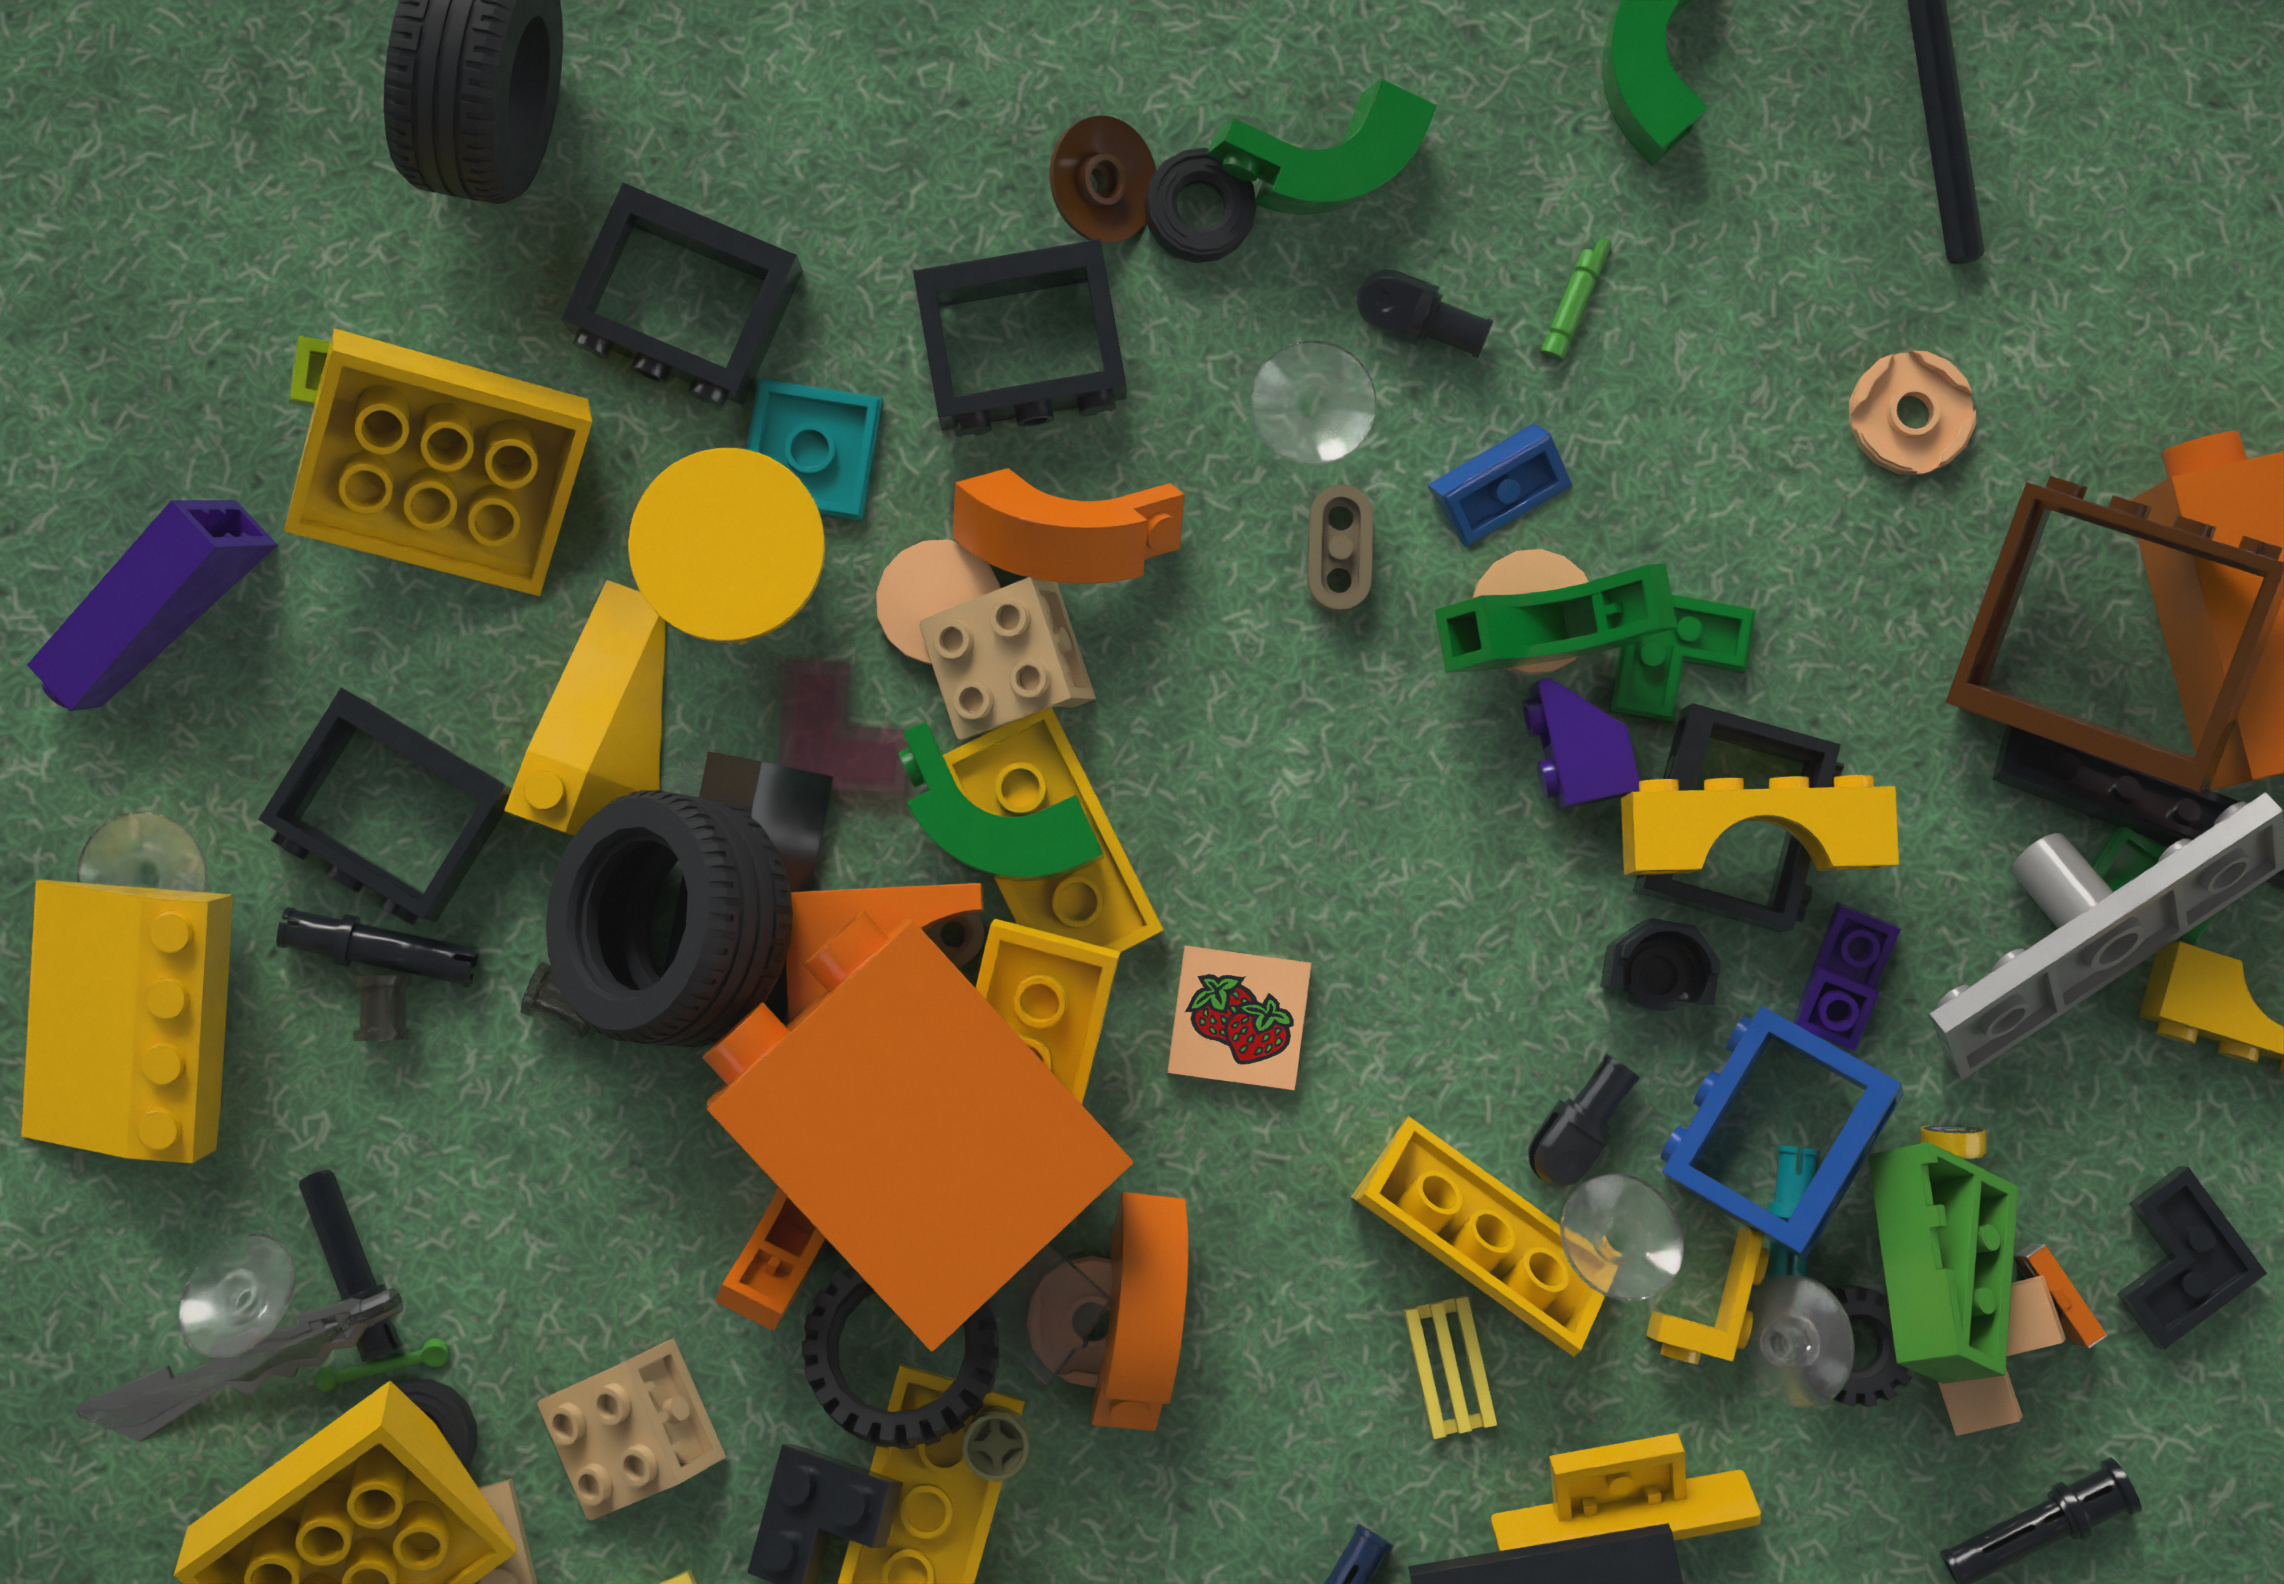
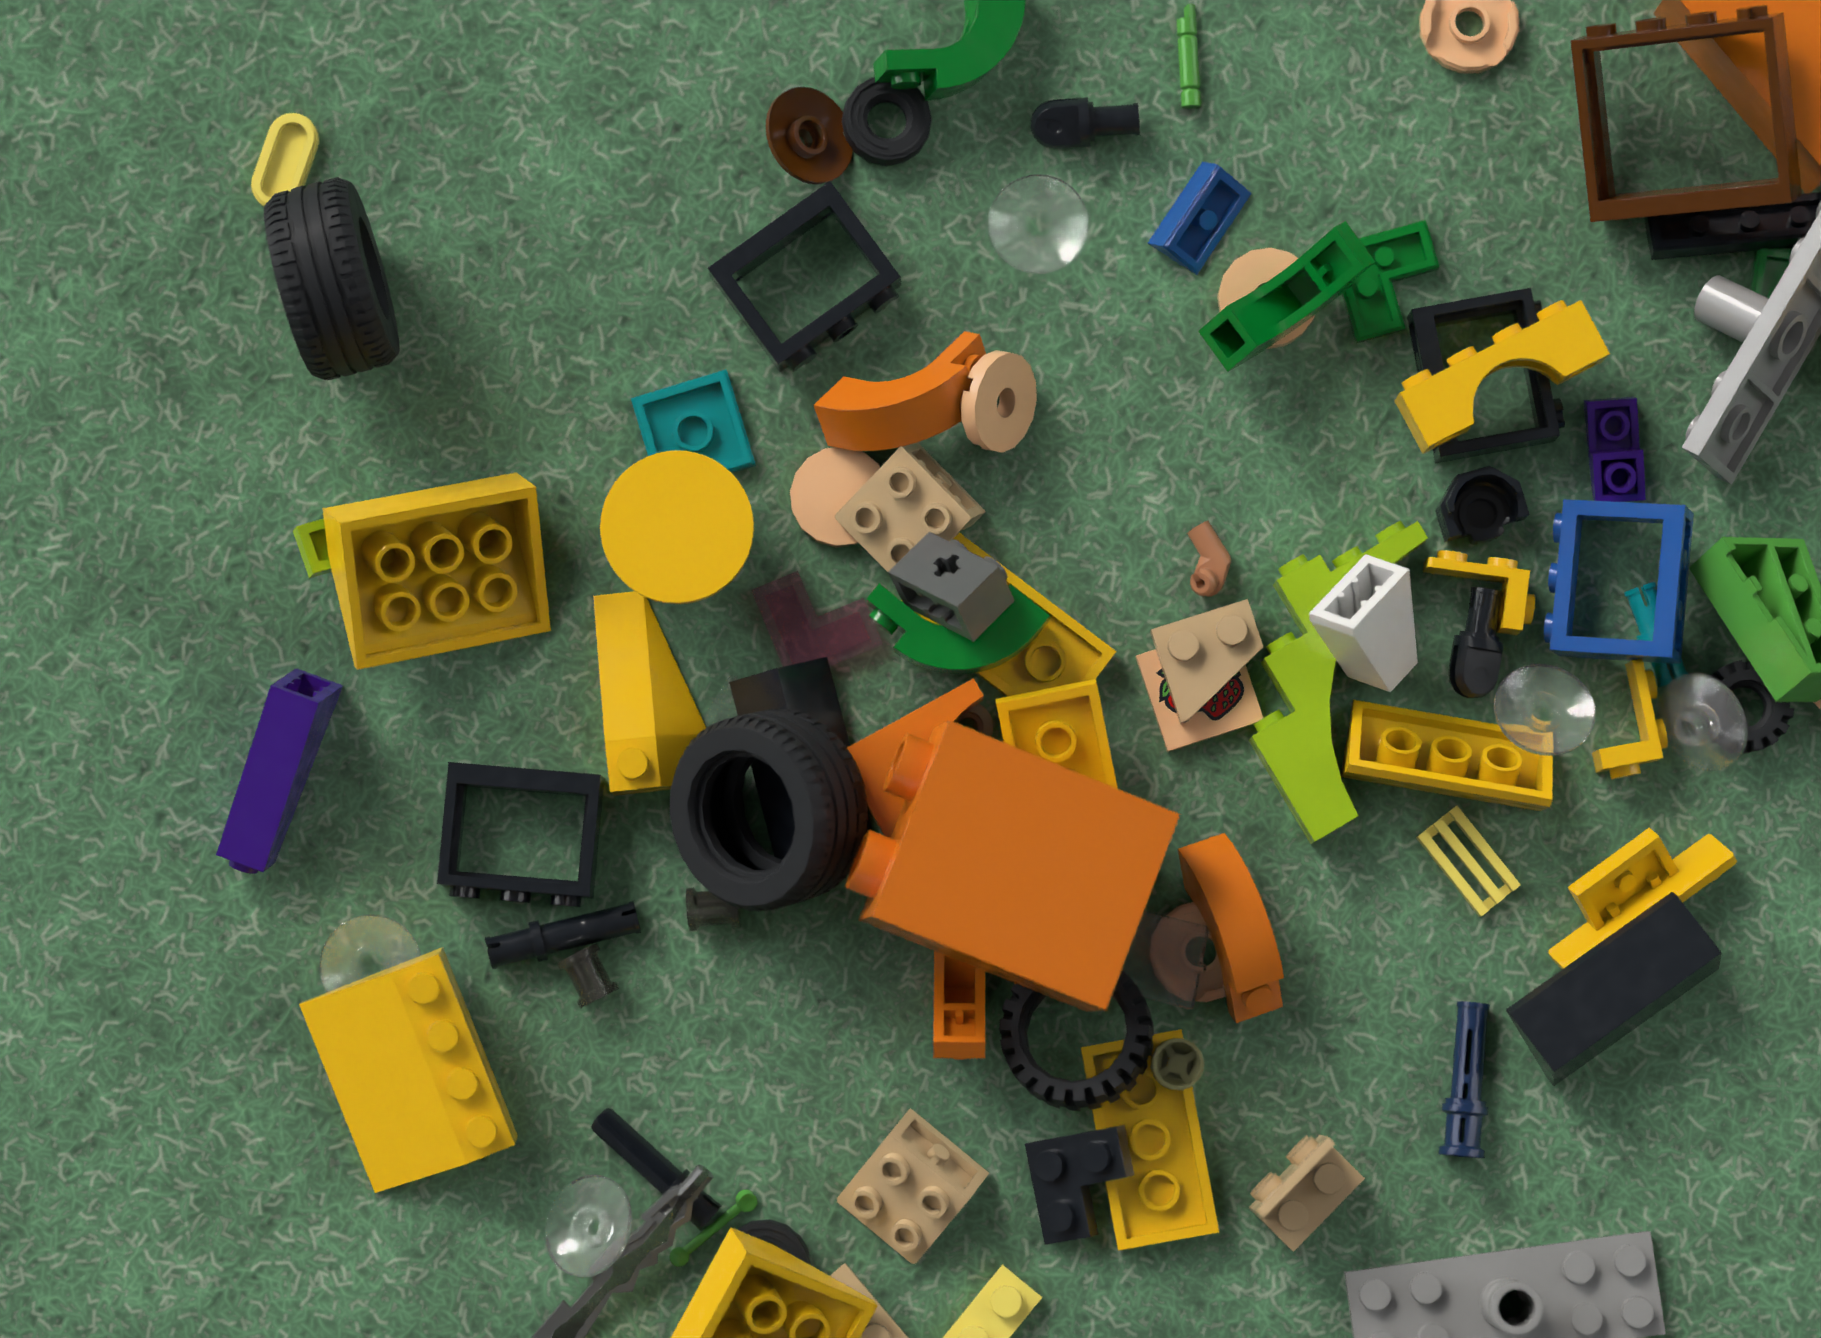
camera: 15 degrees left, 0 degrees up
(708, 238) = (551, 314): black window -> none
(1007, 764) = (952, 585): none -> dark grey brick
(1198, 576) = (1006, 425): none -> light nougat tile
(1264, 982) = (1205, 653): none -> tan wing
(1324, 882) = (1213, 561): none -> nougat arm
(1338, 550) = (1109, 320): dark tan plate -> none
(1425, 991) = (1299, 746): none -> lime arch
(1469, 1041) = (1370, 623): none -> white slope
(1583, 748) = (1350, 378): dark purple slope -> none
(1649, 1097) = (1516, 605): none -> yellow bracket
(1960, 1140) = (1750, 526): yellow tile -> none

